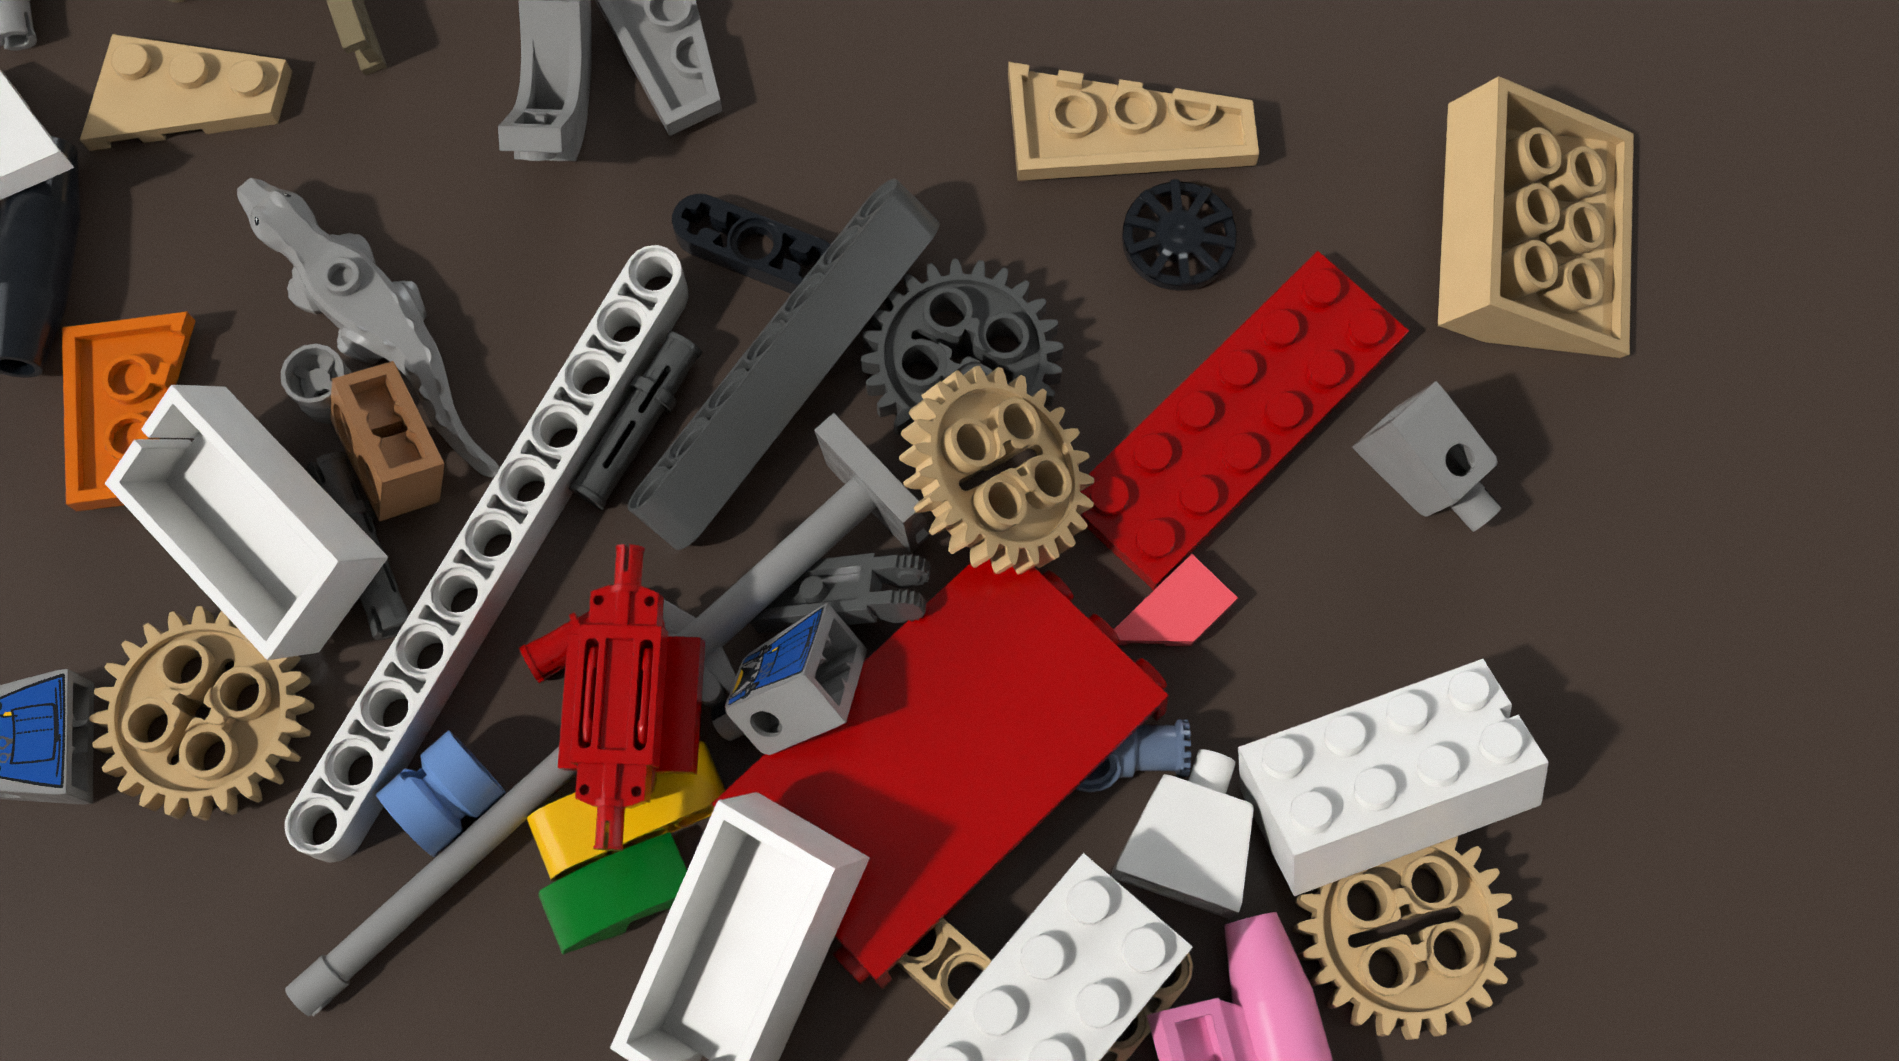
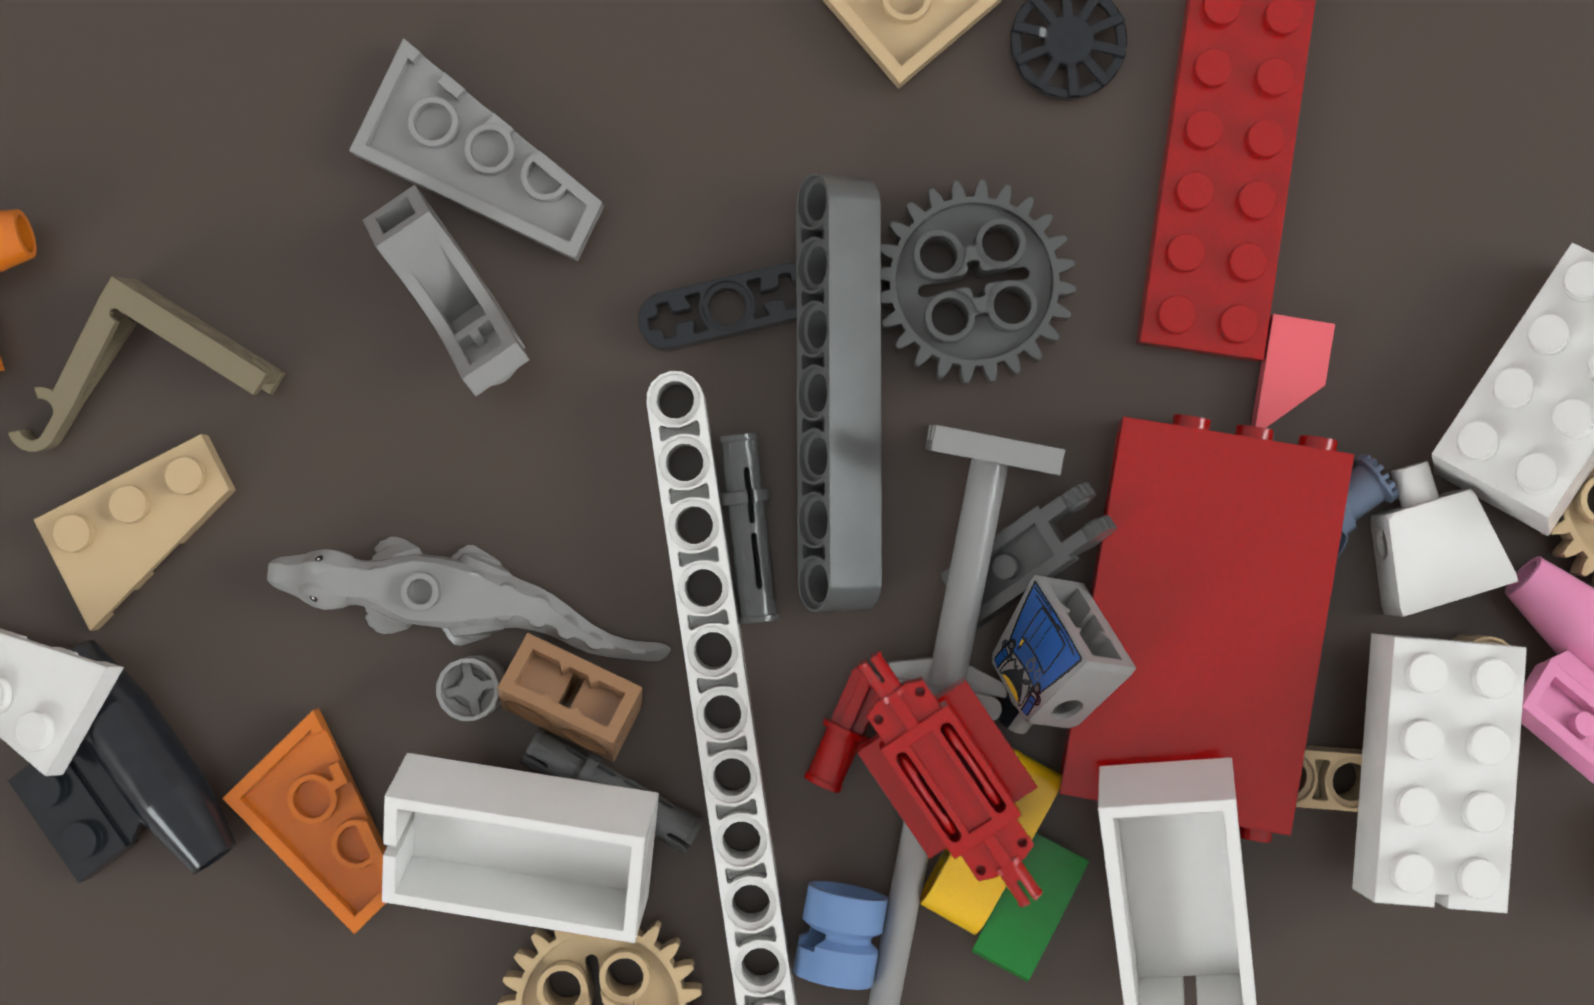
camera: 40 degrees left, 15 degrees up
(974, 426) = (1053, 361): tan gear -> none
(1433, 457) = (1413, 95): light grey torso -> none

